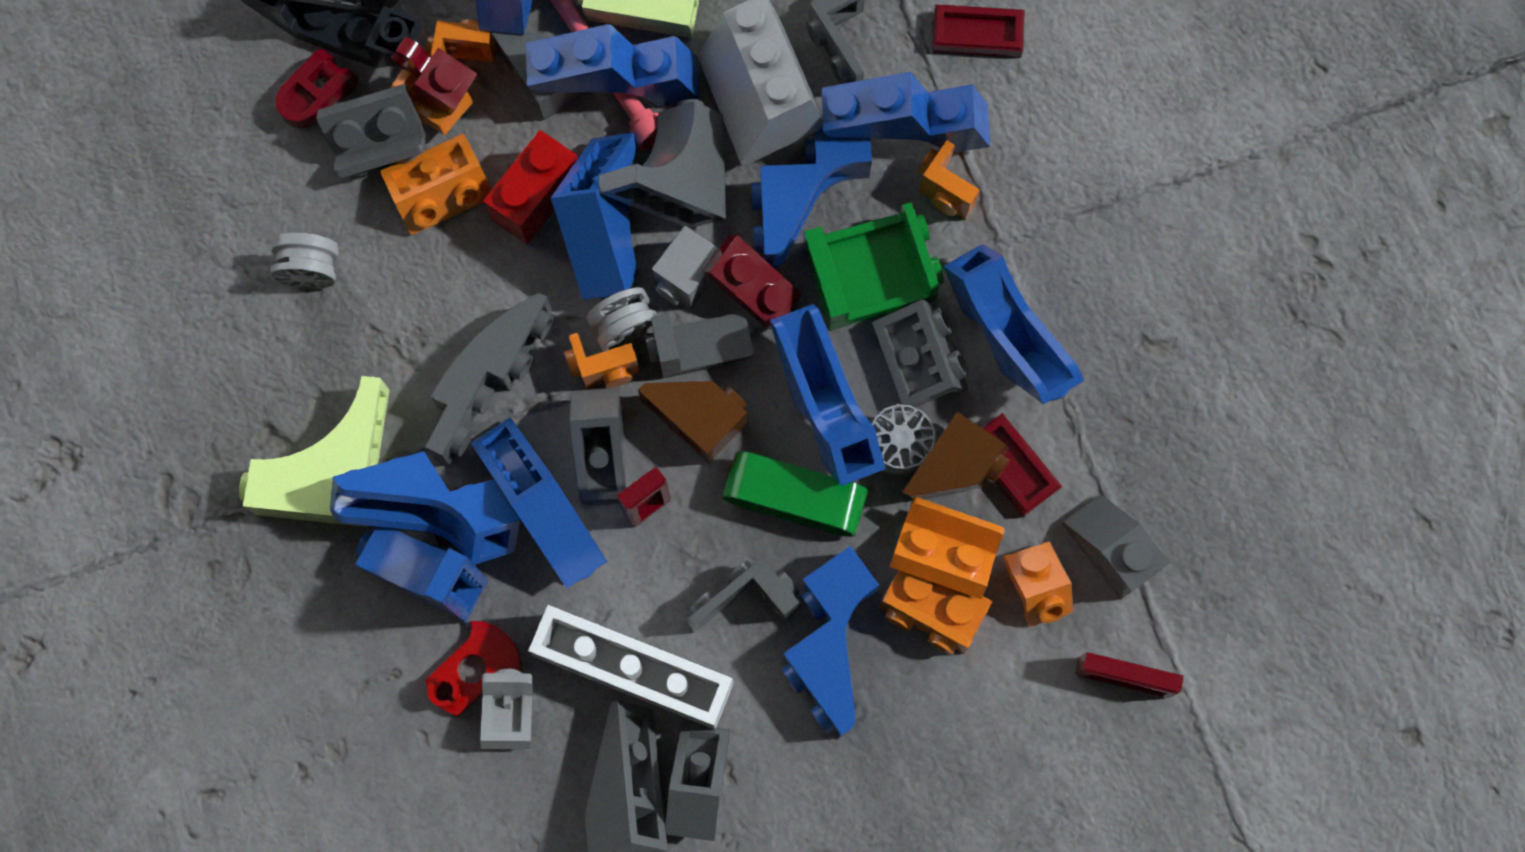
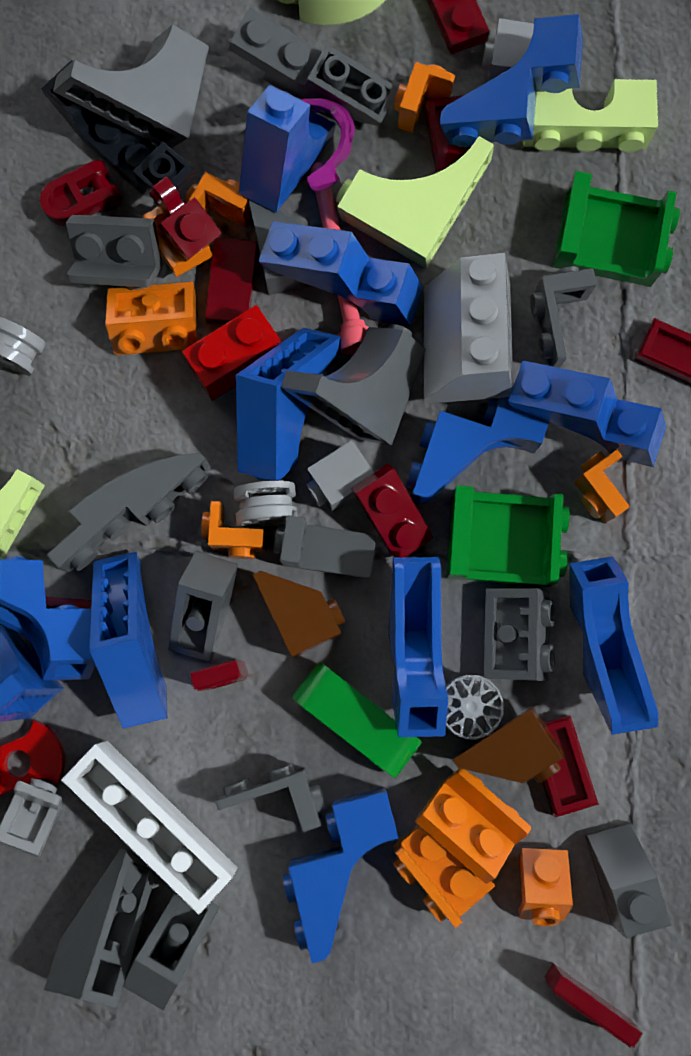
camera: 20 degrees right, 5 degrees up
(500, 118) = (231, 279): none -> dark red tile

